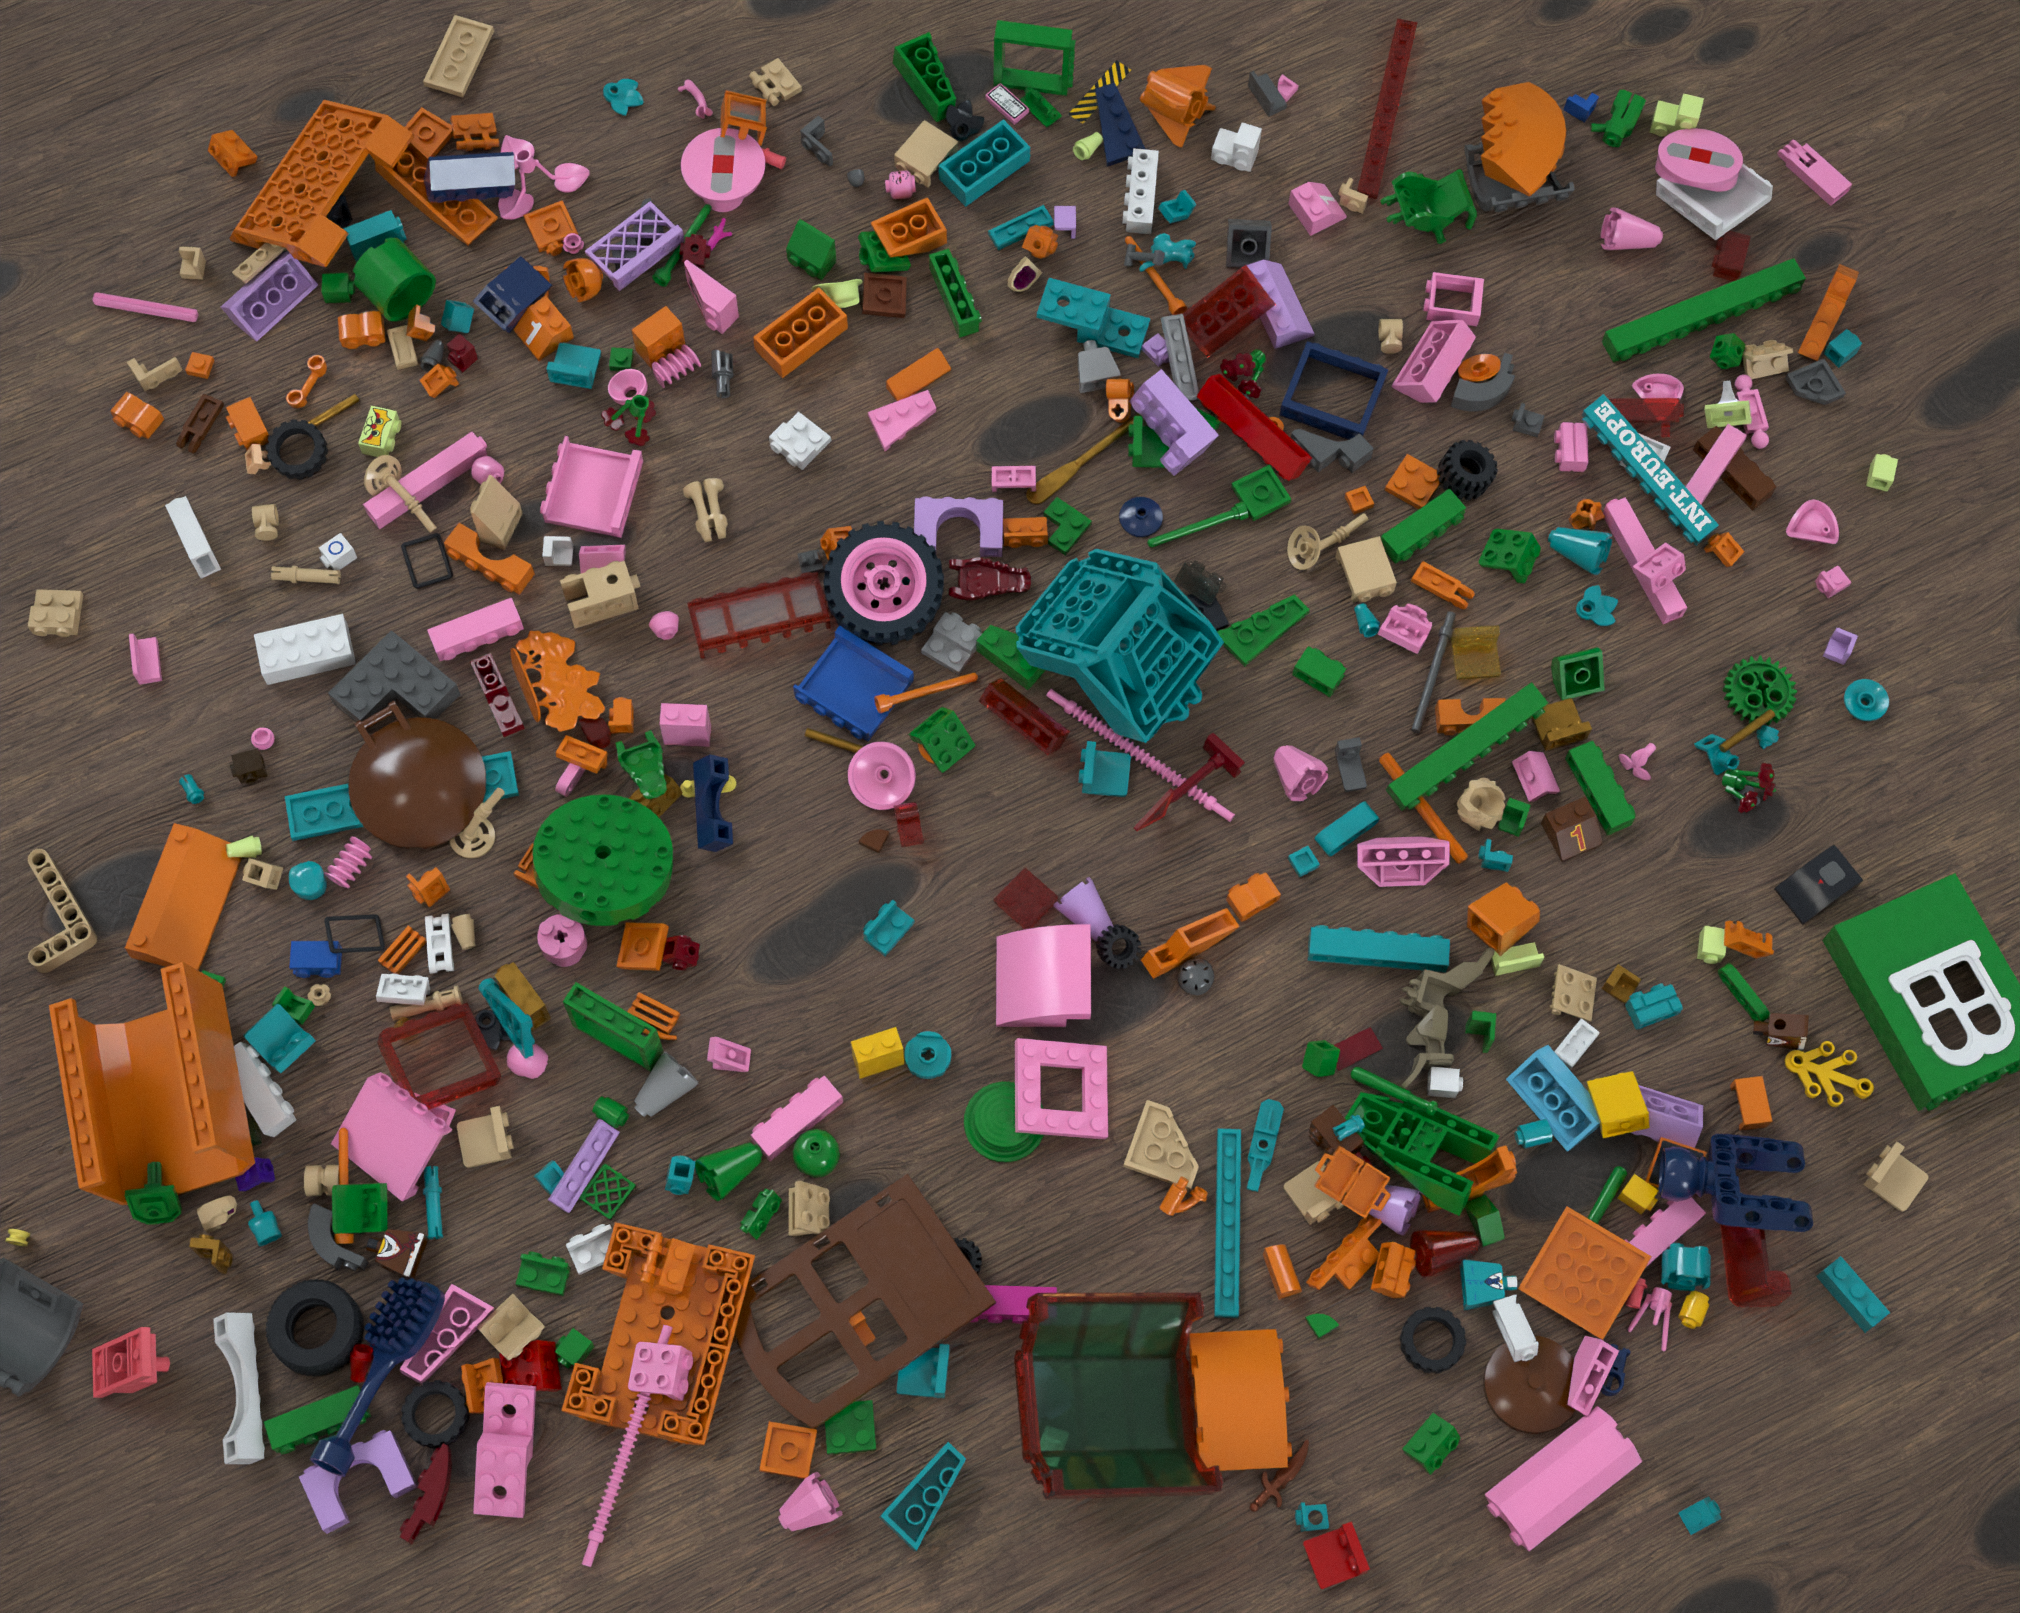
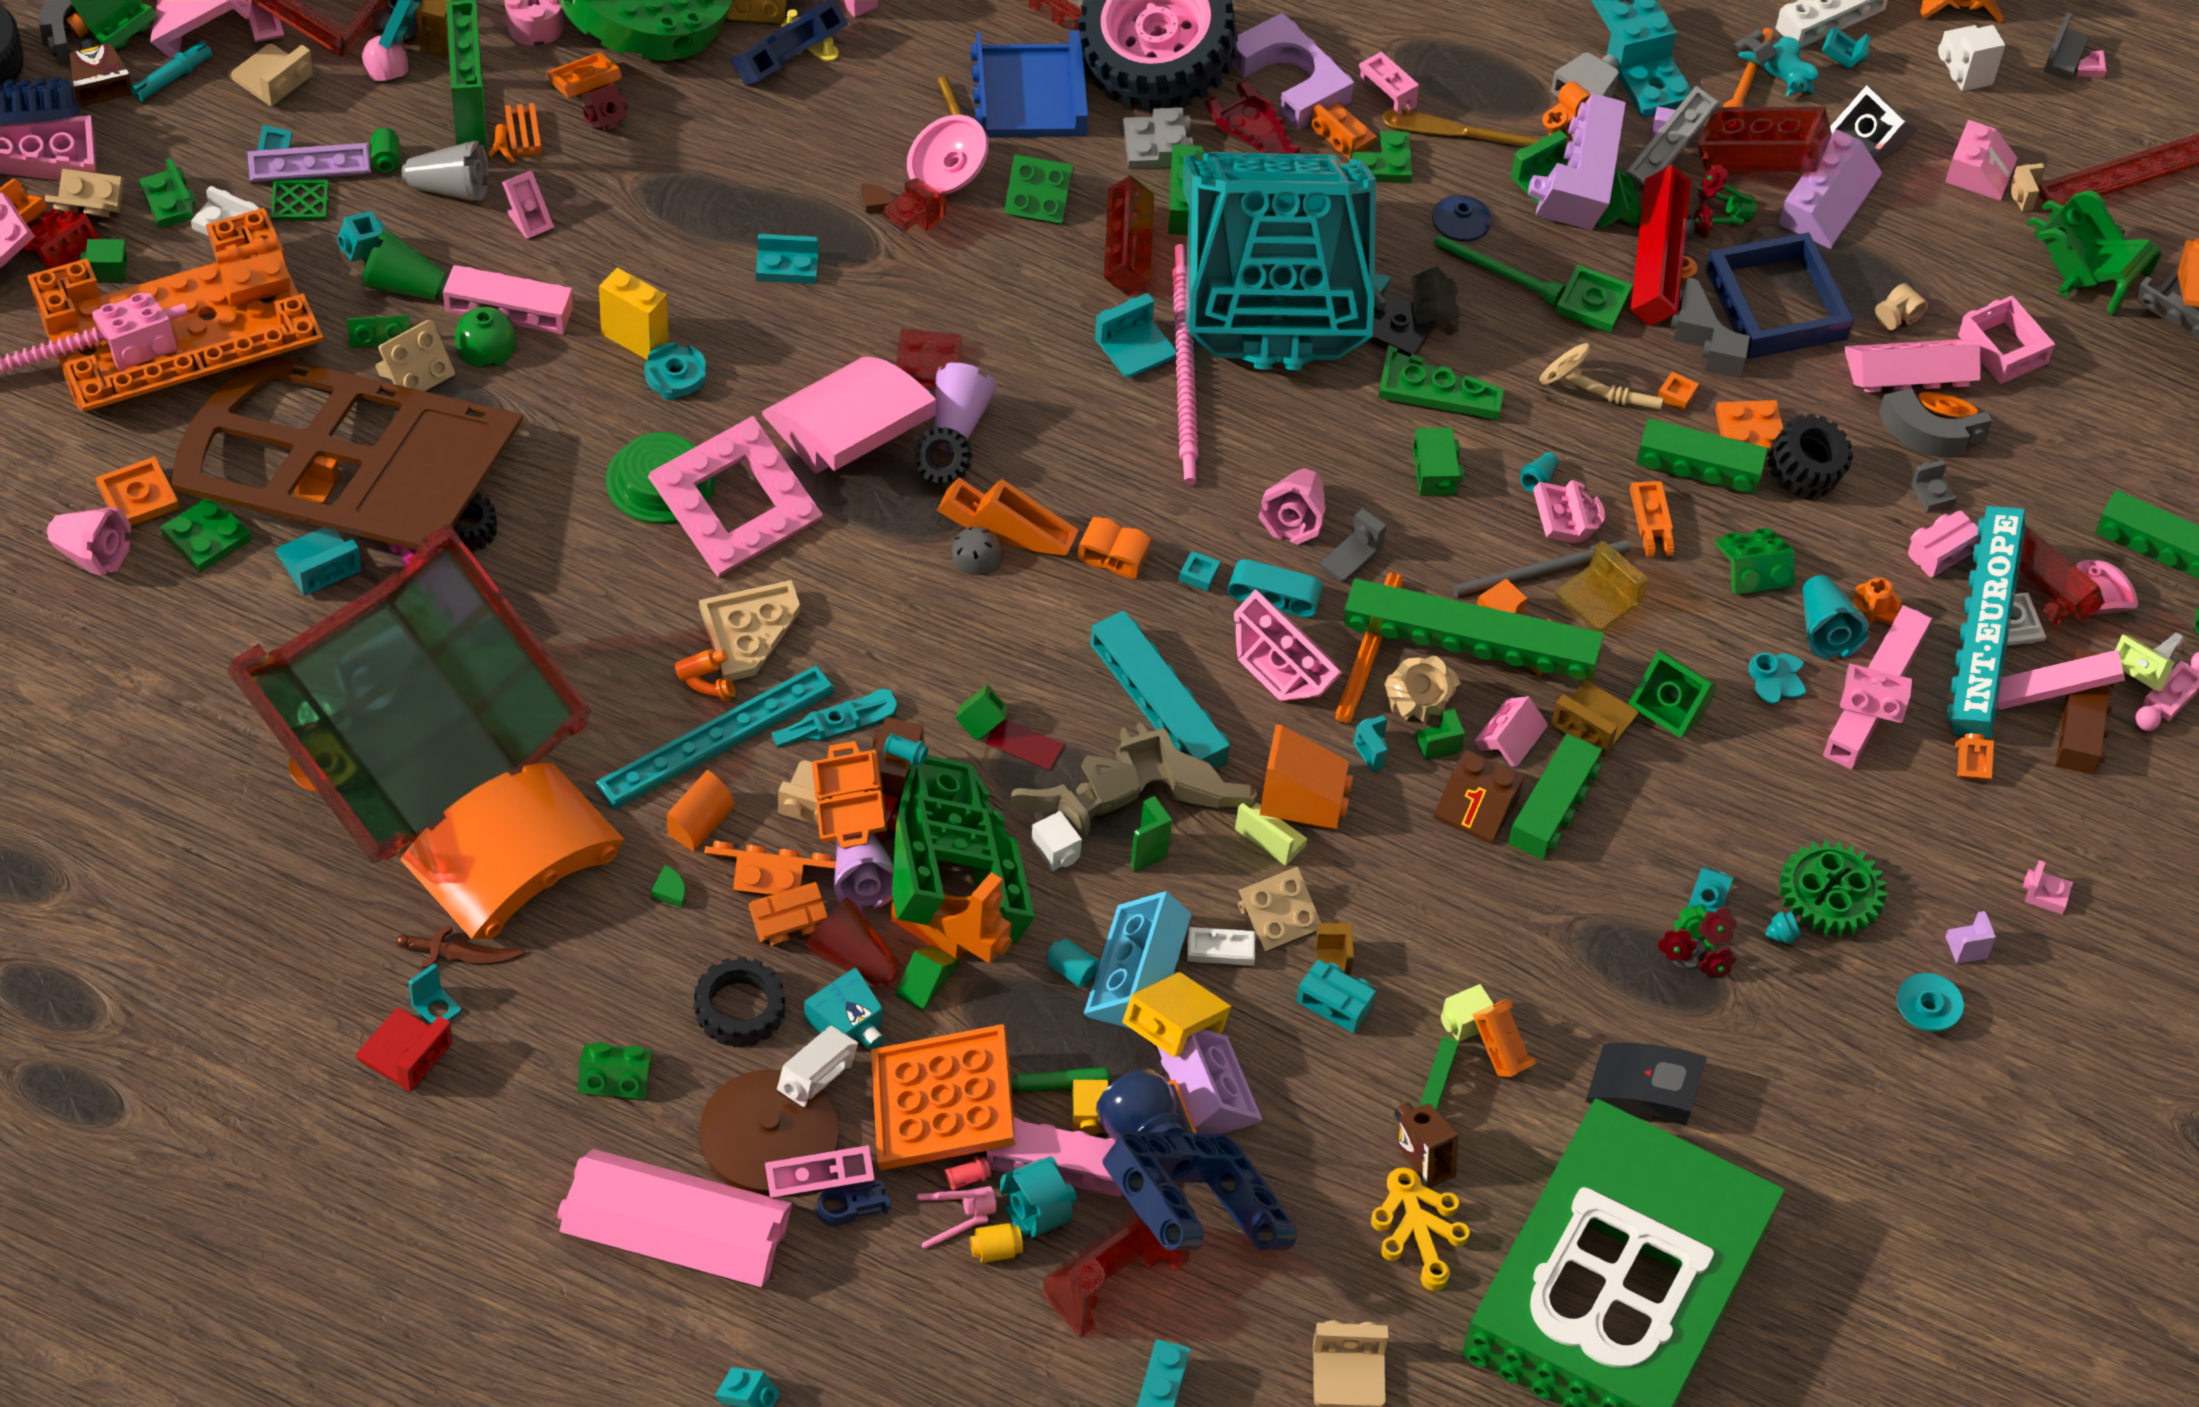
camera: 50 degrees right, 15 degrees down
(884, 702) = (1033, 116): orange piece -> none
(921, 1499) = (175, 628): teal wedge -> none
(1220, 756) = (1133, 397): dark red piece -> none
(1367, 569) = (1598, 436): tan panel -> none
(1384, 1086) = (1000, 788): green piece -> none
(1639, 759) = (1621, 812): bright pink plant -> none
(1746, 731) = (1764, 893): pearl gold bar -> none
(1752, 1102) = (1306, 1161): orange panel -> none
(1814, 523) = (2098, 827): bright pink hat -> none

